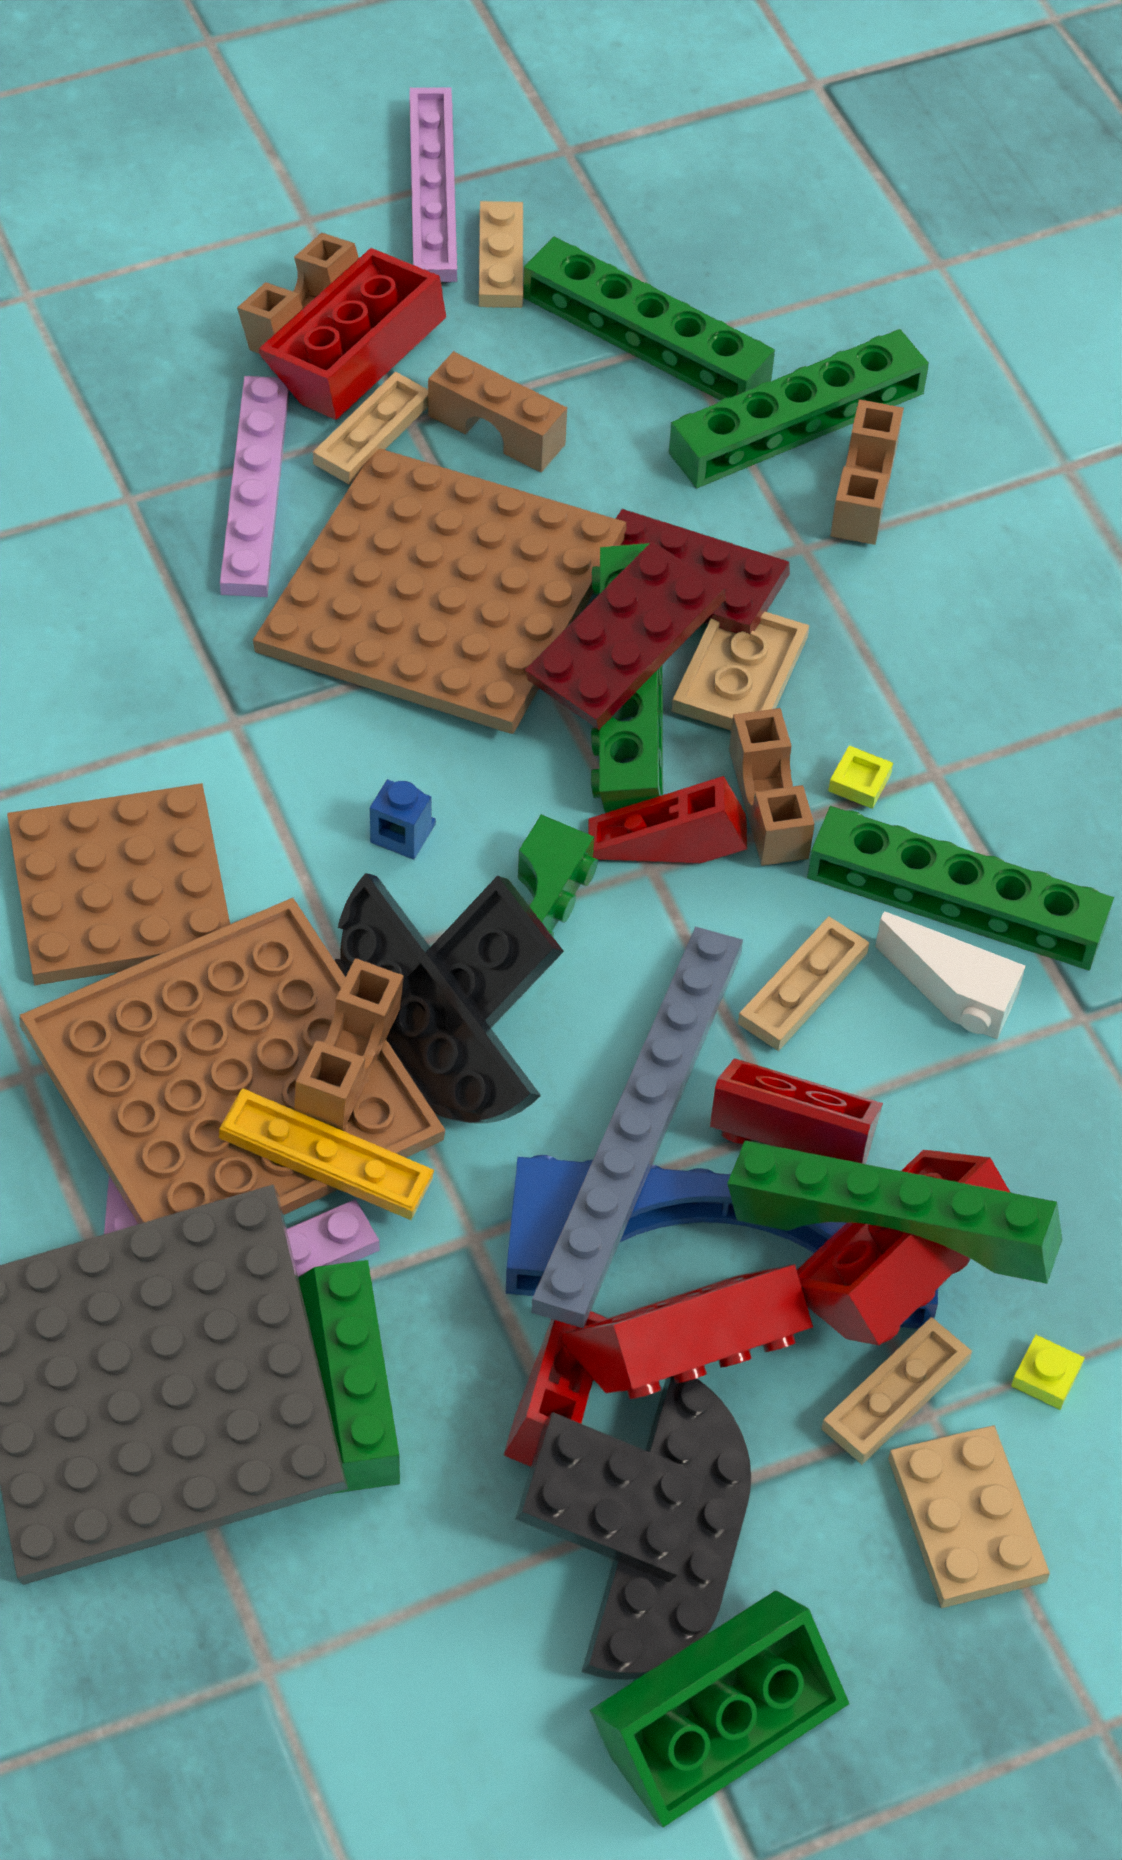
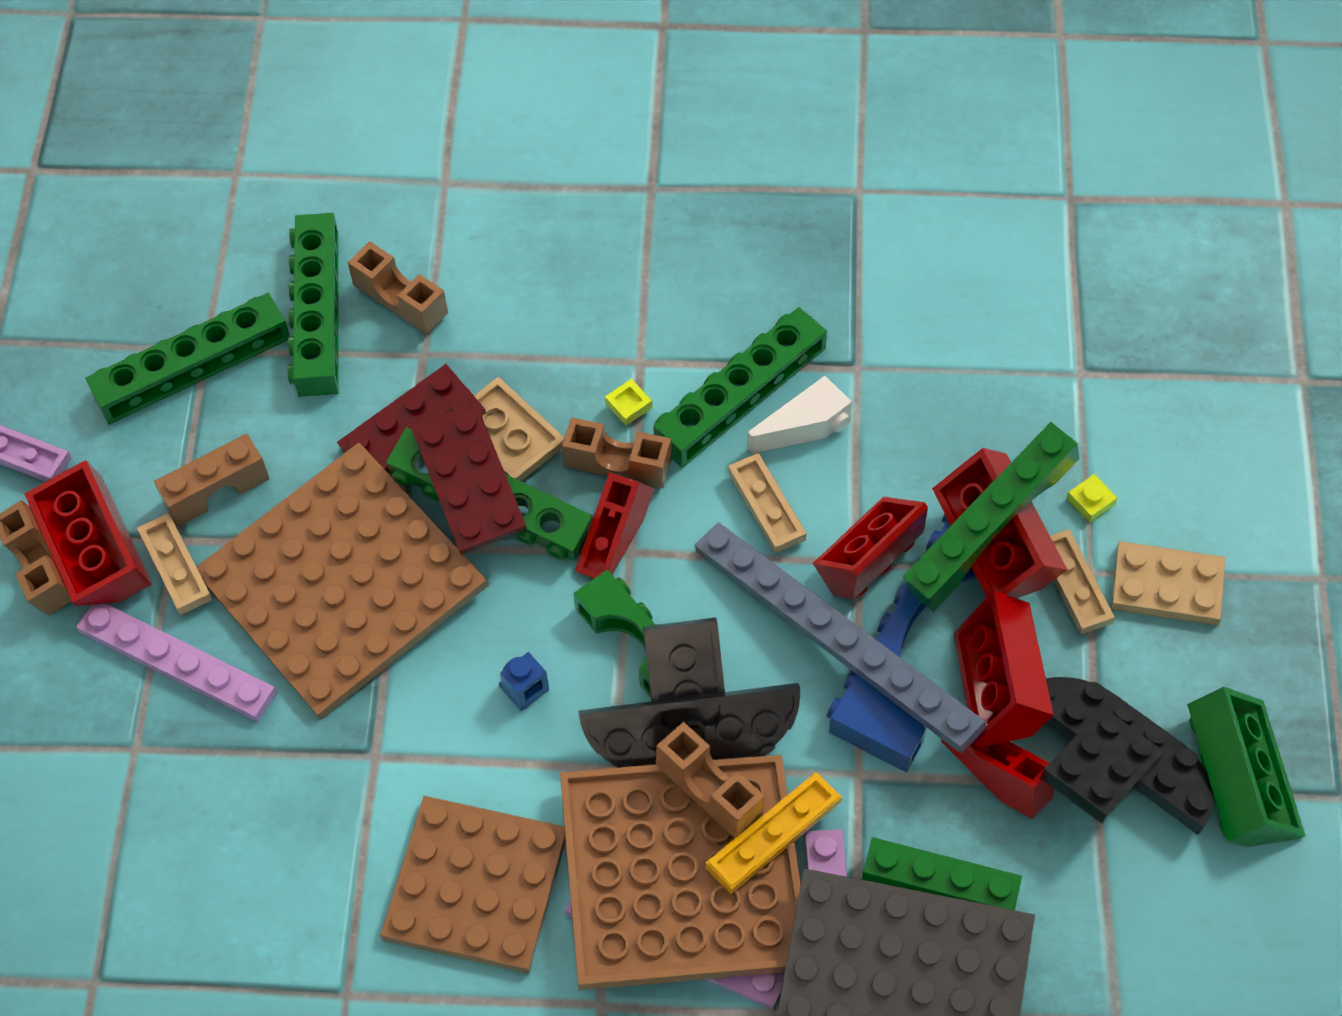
camera: 60 degrees left, 5 degrees up
(501, 254) = (64, 420): tan plate -> none

